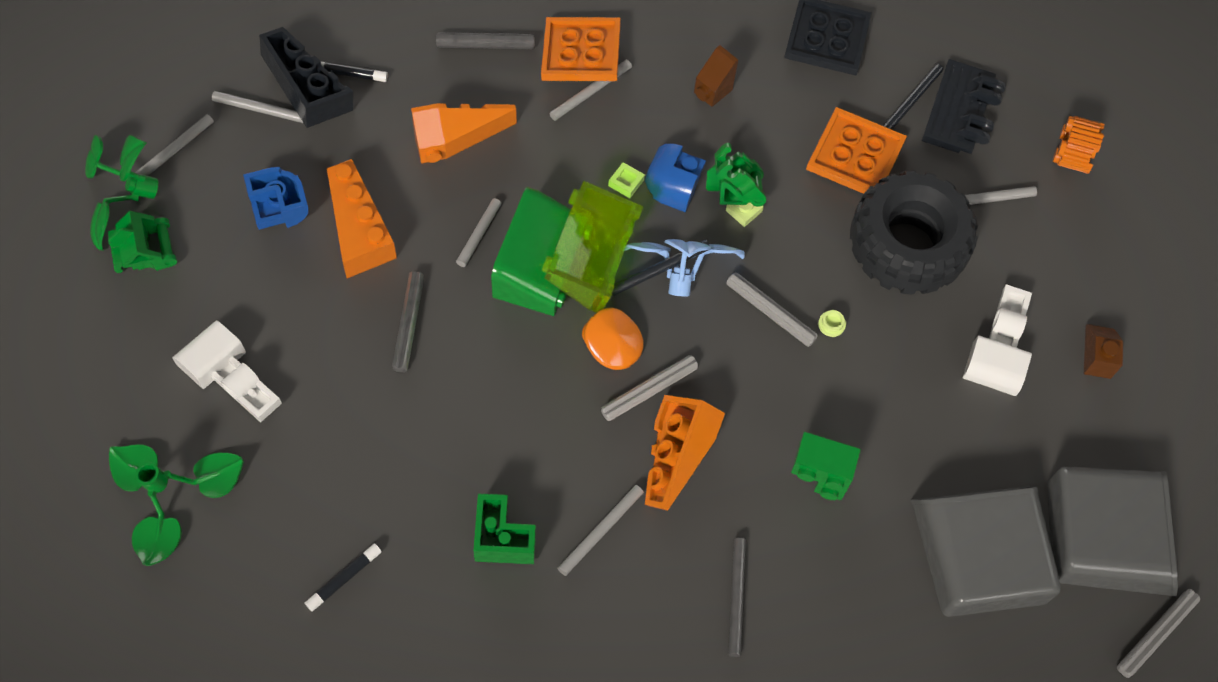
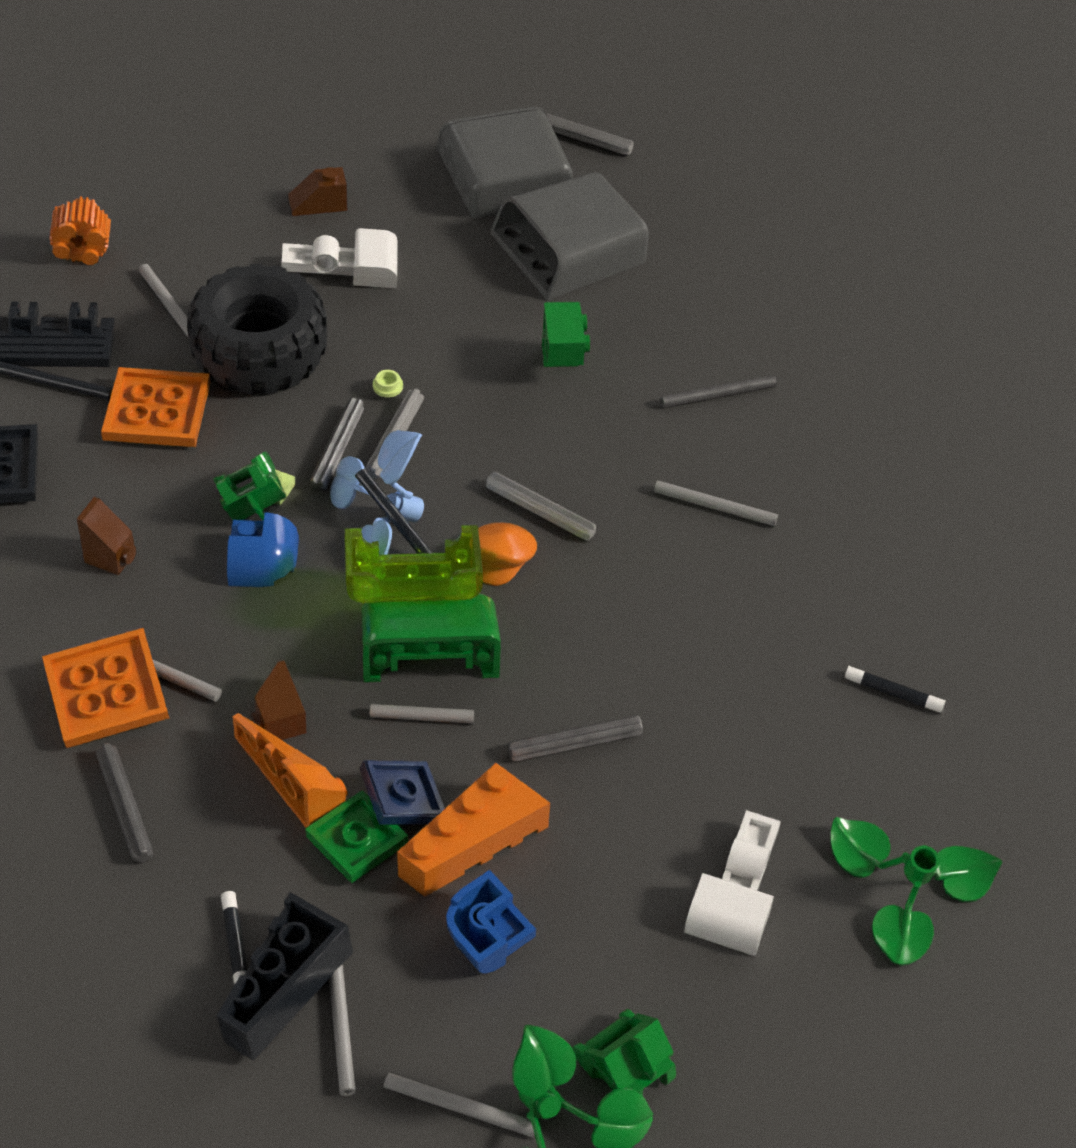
camera: 110 degrees left, 15 degrees down
(391, 155) = (354, 838): none -> green plate
(409, 190) = (401, 791): none -> dark blue plate
(497, 539) = (777, 565): green brick -> none
(522, 143) = (279, 705): none -> reddish brown slope
(626, 180) = (286, 592): yellowish green plate -> none
(683, 438) = (590, 463): orange wedge -> none
(775, 265) = (336, 444): none -> flat silver axle

